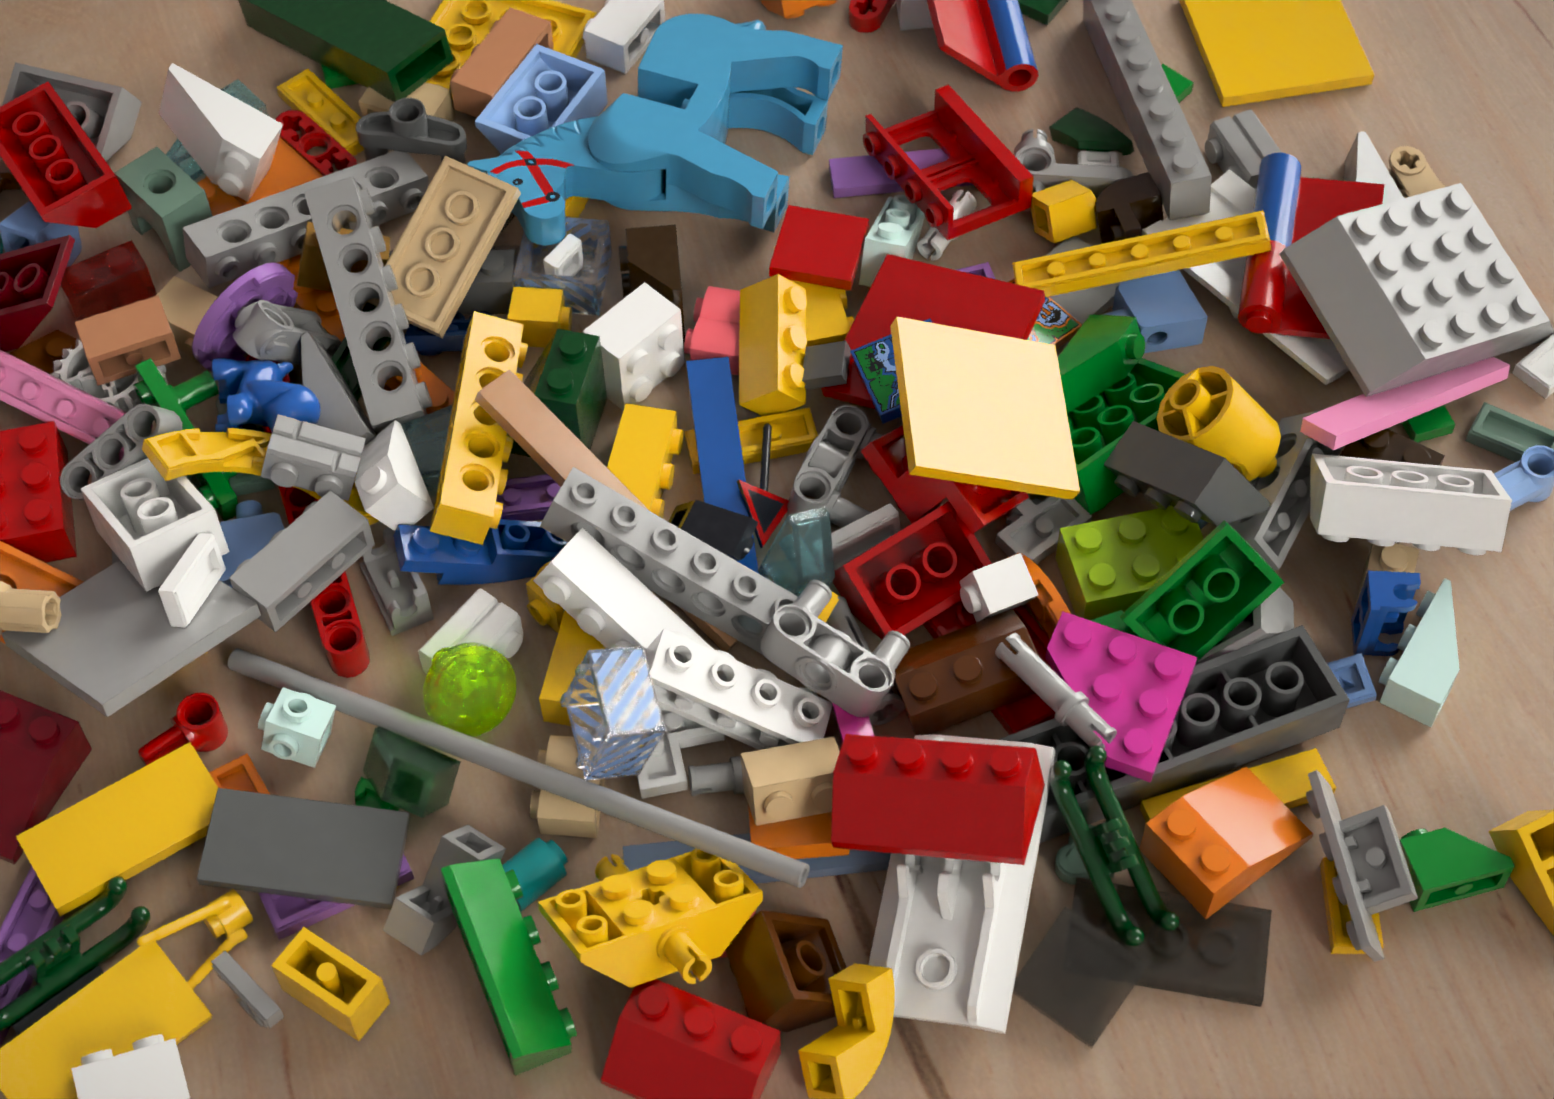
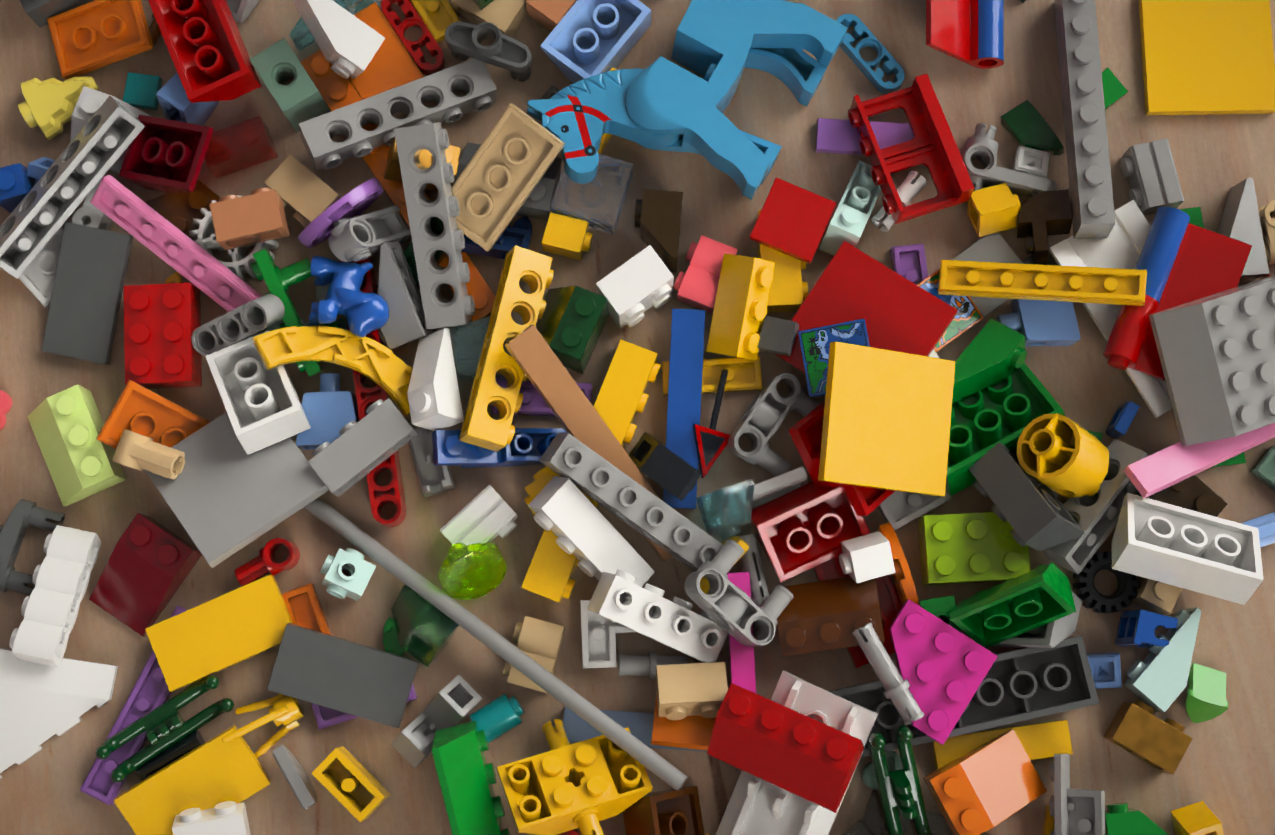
camera: 10 degrees right, 25 degrees up
(192, 580) = (280, 460): white tile -> none
(312, 457) = (378, 366): light grey brick -> none
(565, 258) = (592, 193): white tile -> none
(613, 713) = (570, 627): clear container -> none
(884, 108) = (869, 40): none -> dark azure beam
(1286, 395) = (1122, 419): none -> blue tile
(1330, 563) = (1092, 598): none -> black tyre
(1430, 749) = (1148, 737): none -> pearl gold brick
(1489, 688) = (1205, 693): none -> tile

